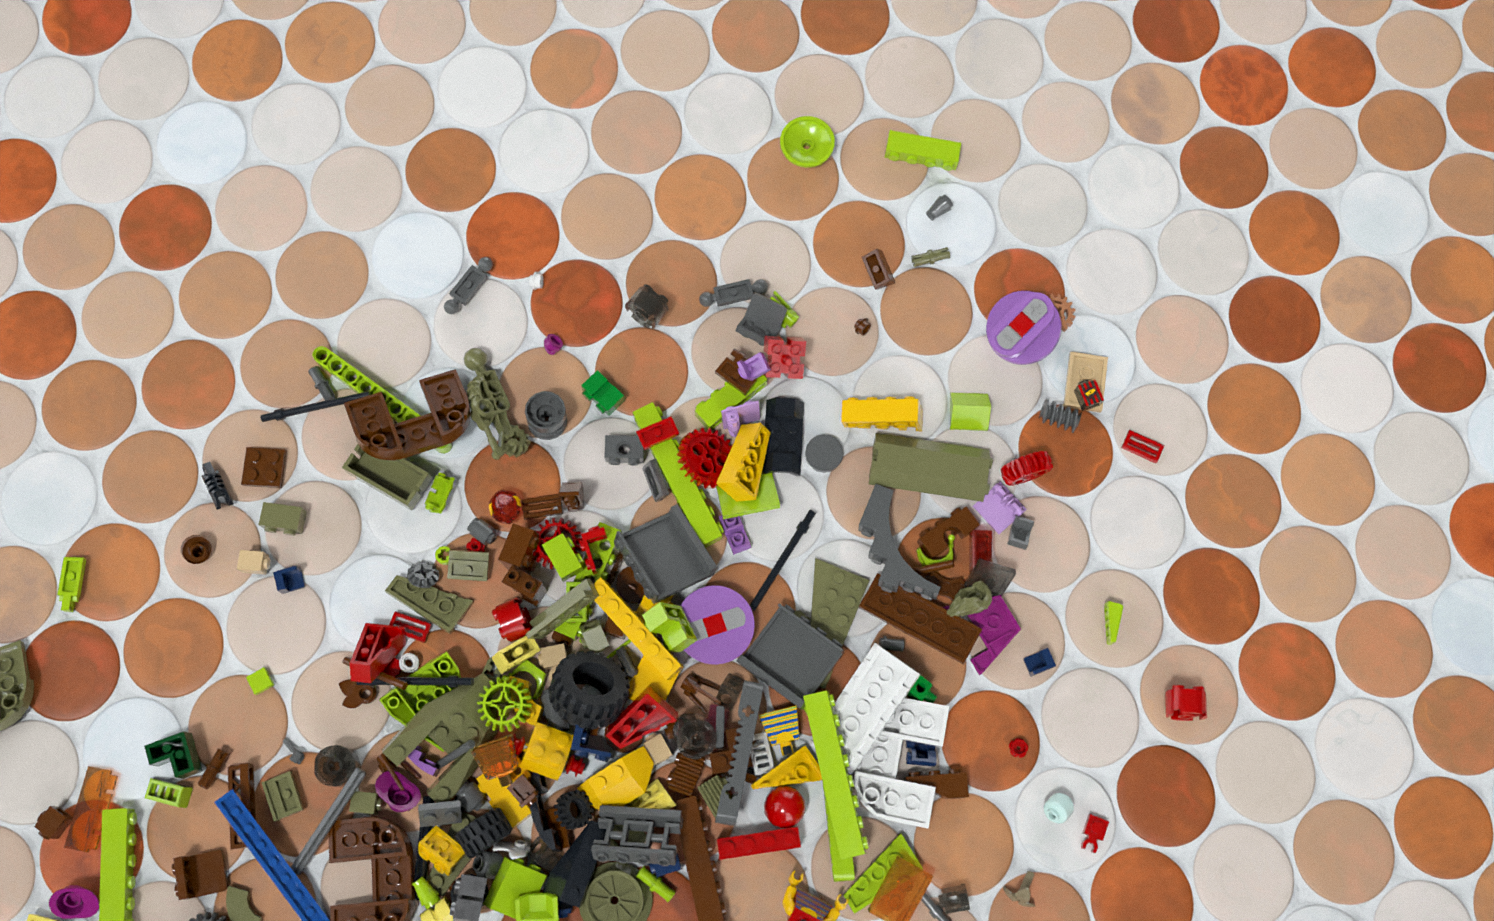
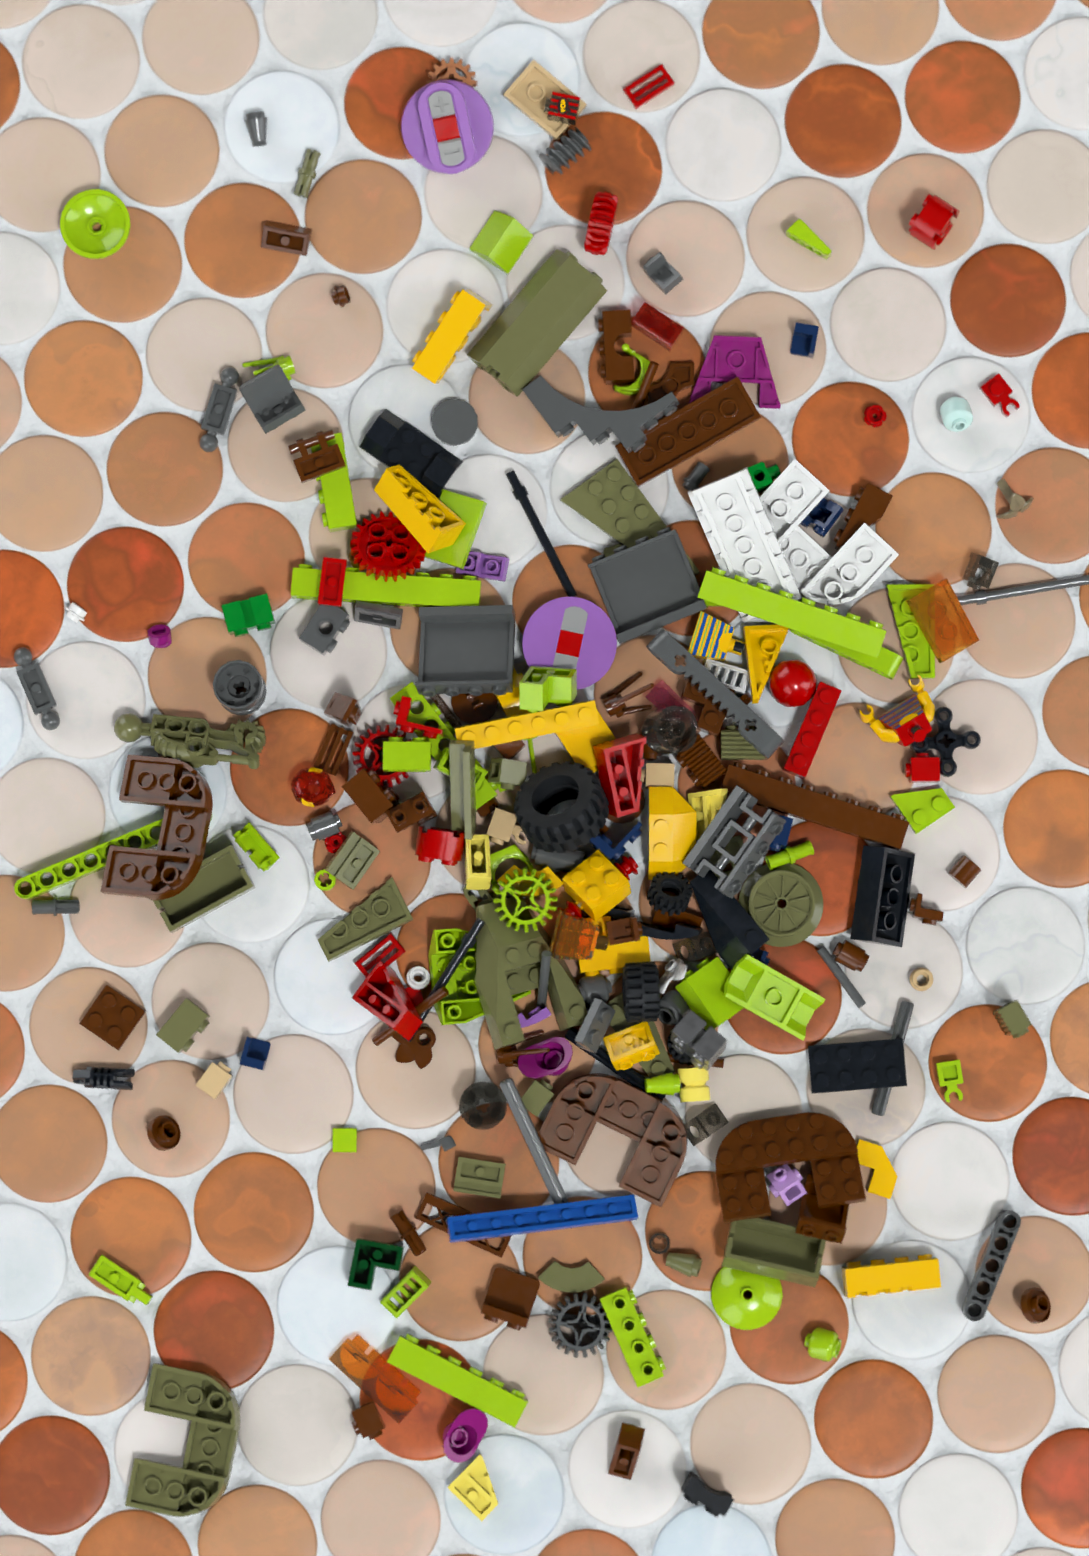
camera: 55 degrees left, 10 degrees up
(281, 414) = (63, 968): black bar -> none
(418, 579) = (337, 919): dark grey gear -> none
(626, 662) = (552, 755): dark grey axle -> none
(647, 306) = (182, 510): clear smoke brick -> none
(720, 711) = (674, 698): dark grey tile -> none
(732, 686) = (642, 663): clear smoke bracket -> none
(735, 416) = (360, 493): lavender hinge -> none
(753, 367) = (324, 439): medium lavender bracket -> none
(784, 356) = (328, 400): brick -> none
(922, 150) = (180, 104): lime brick -> none
(971, 600) = (702, 369): olive hair -> none
(993, 575) = (692, 336): clear smoke plate -> none
(999, 508) = (623, 277): lavender hinge -> none

